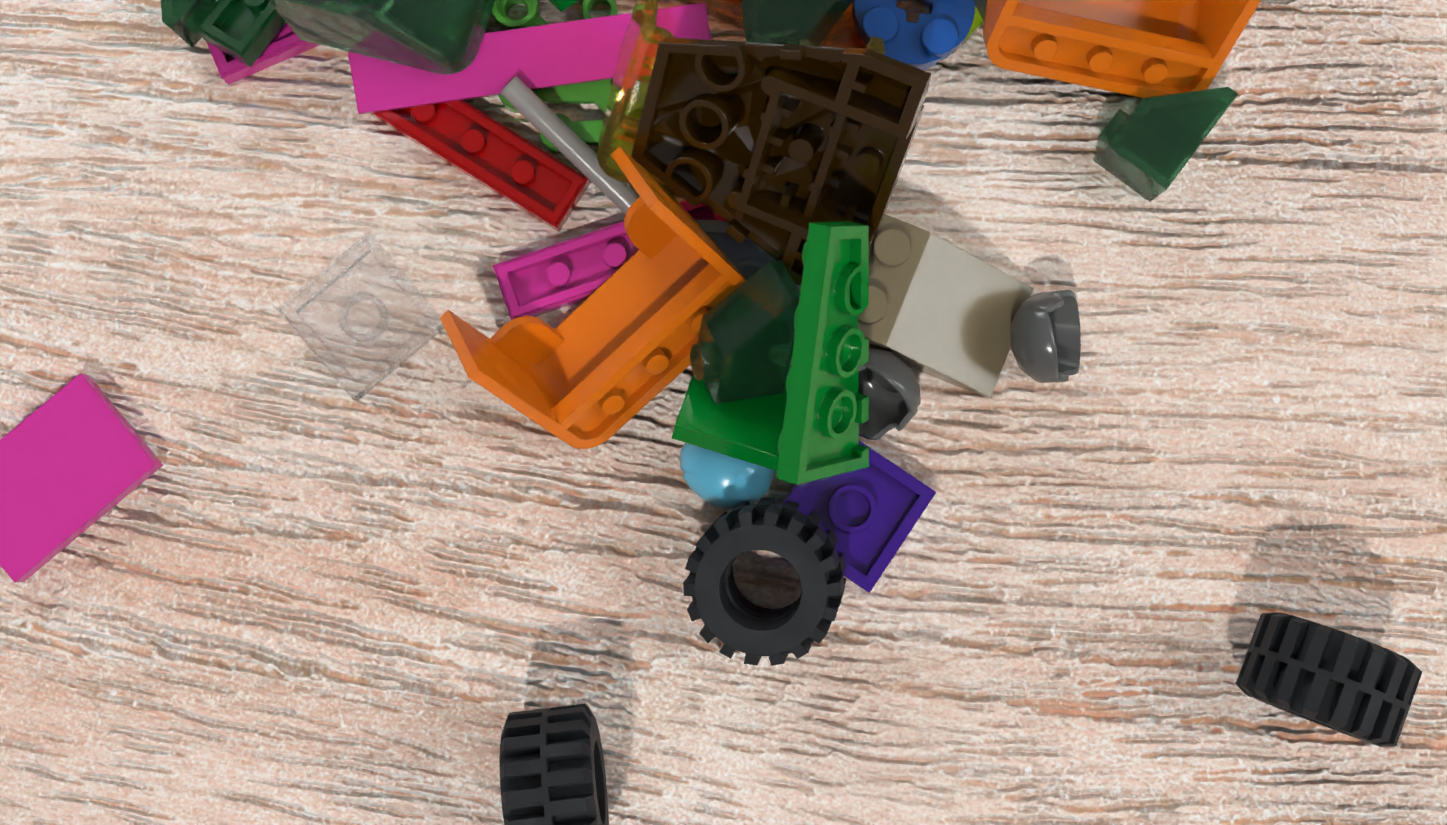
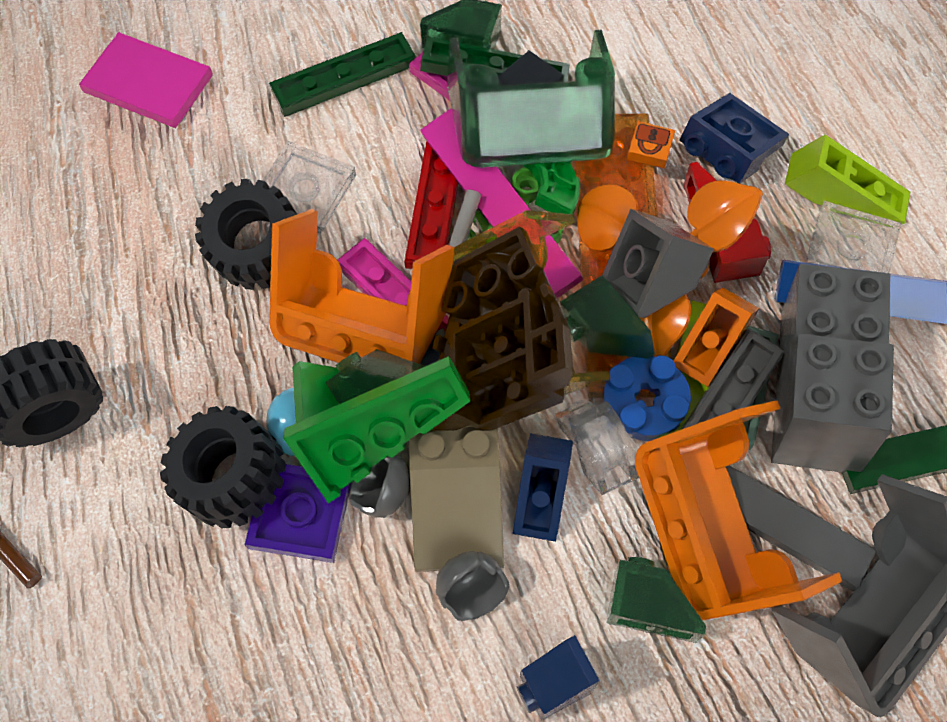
camera: 65 degrees right, 20 degrees down
(187, 181) = (342, 74): none -> dark green tile
(391, 460) = (224, 220): none -> black tyre
(963, 191) = (542, 487): none -> dark blue slope
(964, 95) = (600, 443): none -> clear brick
(1211, 285) = (557, 679): none -> dark blue slope

